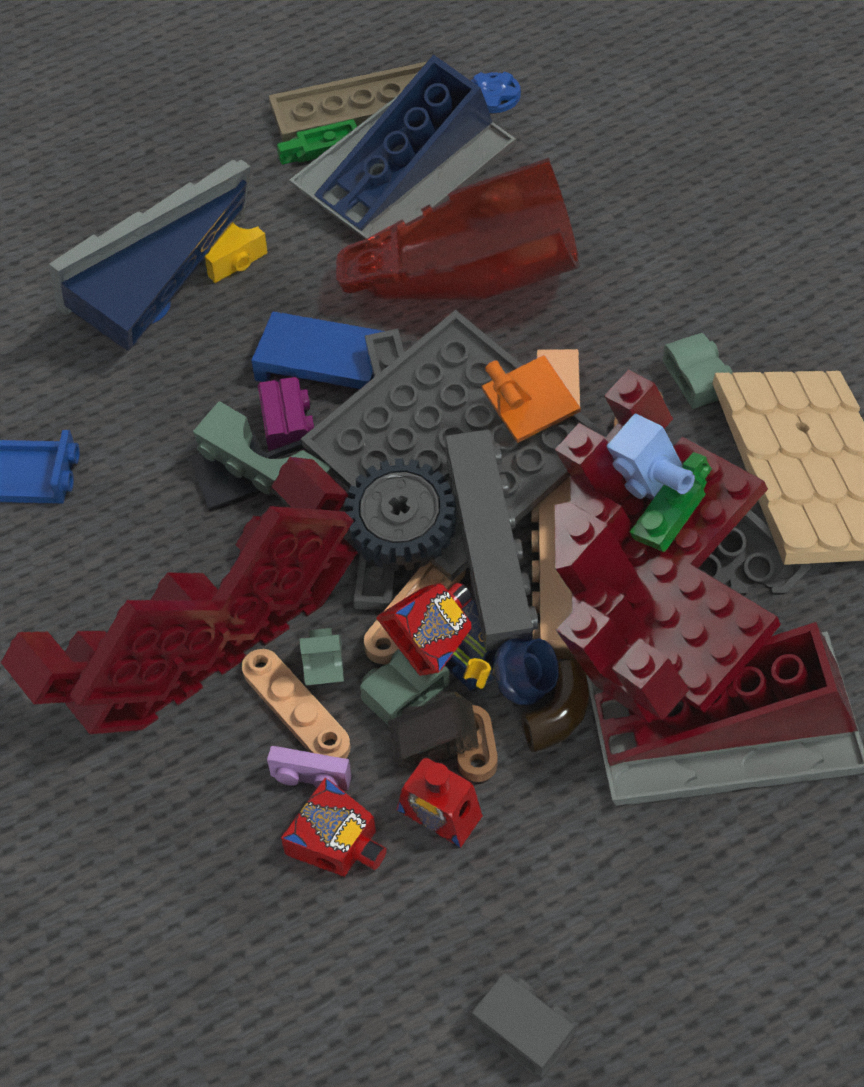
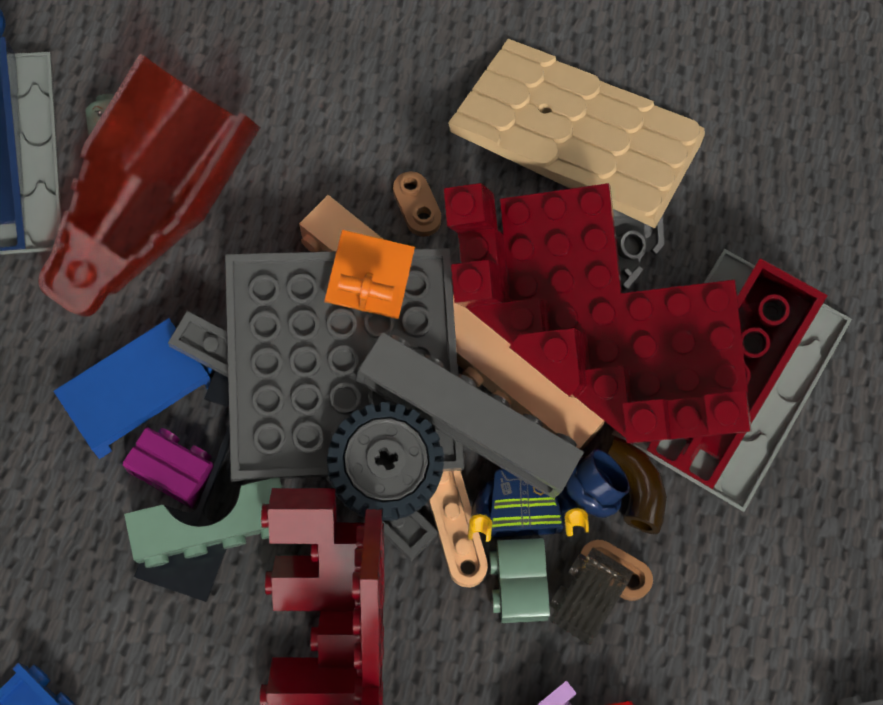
camera: 55 degrees left, 15 degrees up
(295, 704) = (465, 679): light nougat plate -> none
(322, 657) = (447, 625): sand green brick -> none
(429, 625) = (513, 525): torso -> none
(435, 799) = (650, 640): red torso -> none
(648, 459) = (520, 246): light blue brick -> none
(671, 509) = (564, 261): green hinge -> none
(693, 367) = (418, 128): sand green brick -> none

